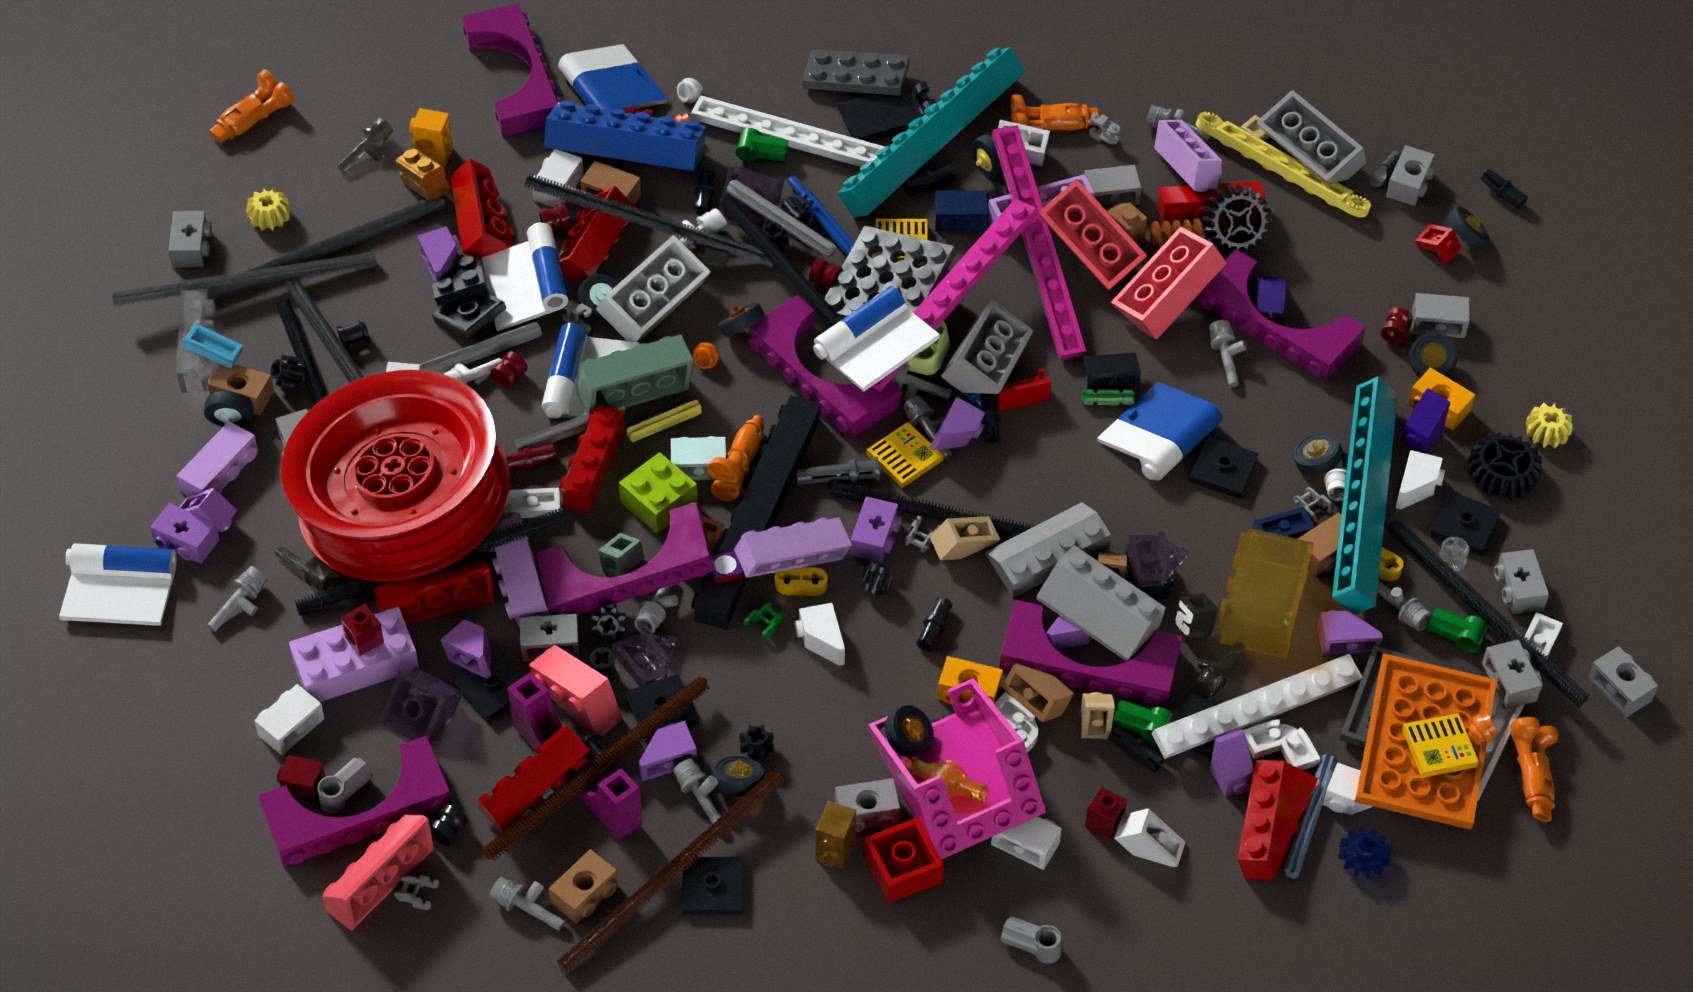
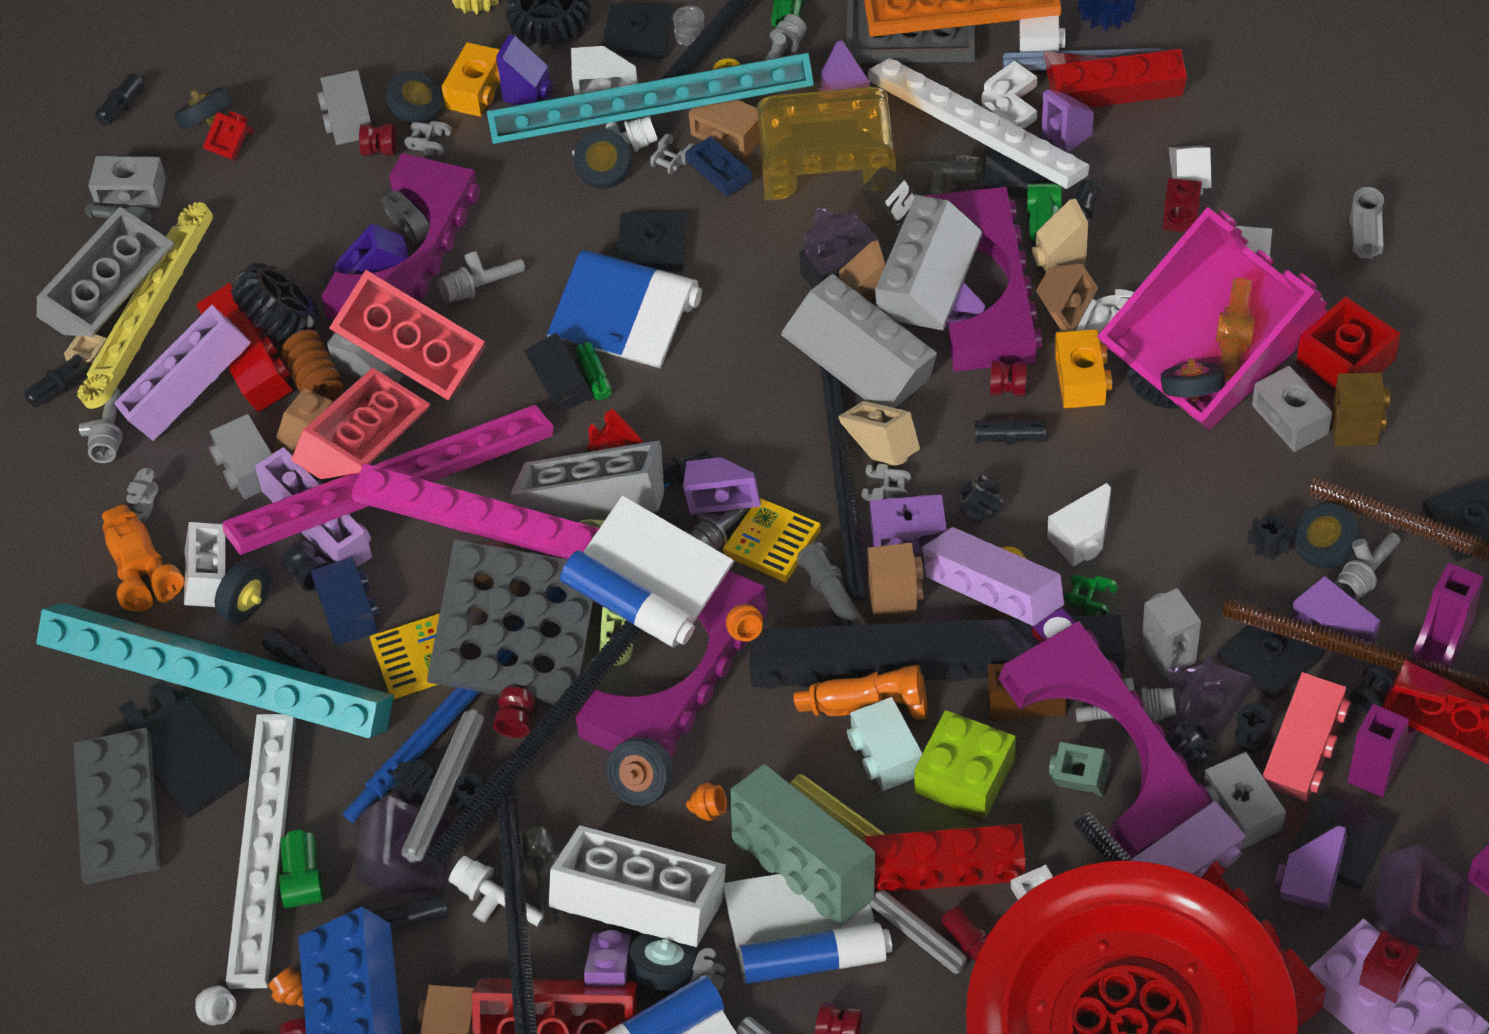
camera: 105 degrees left, 0 degrees up
(609, 263) = (608, 959): none -> medium lavender plate
(697, 636) = (1170, 631): none -> light grey brick
(820, 492) = (894, 580): none -> medium nougat brick
(821, 394) = (744, 622): none -> orange plate
(982, 634) = (1000, 378): none -> dark red wheel
(1229, 105) = (55, 381): none -> black axle
(1309, 319) = (405, 216): none -> flat silver piece
(1385, 356) = (428, 131): none -> light grey piece

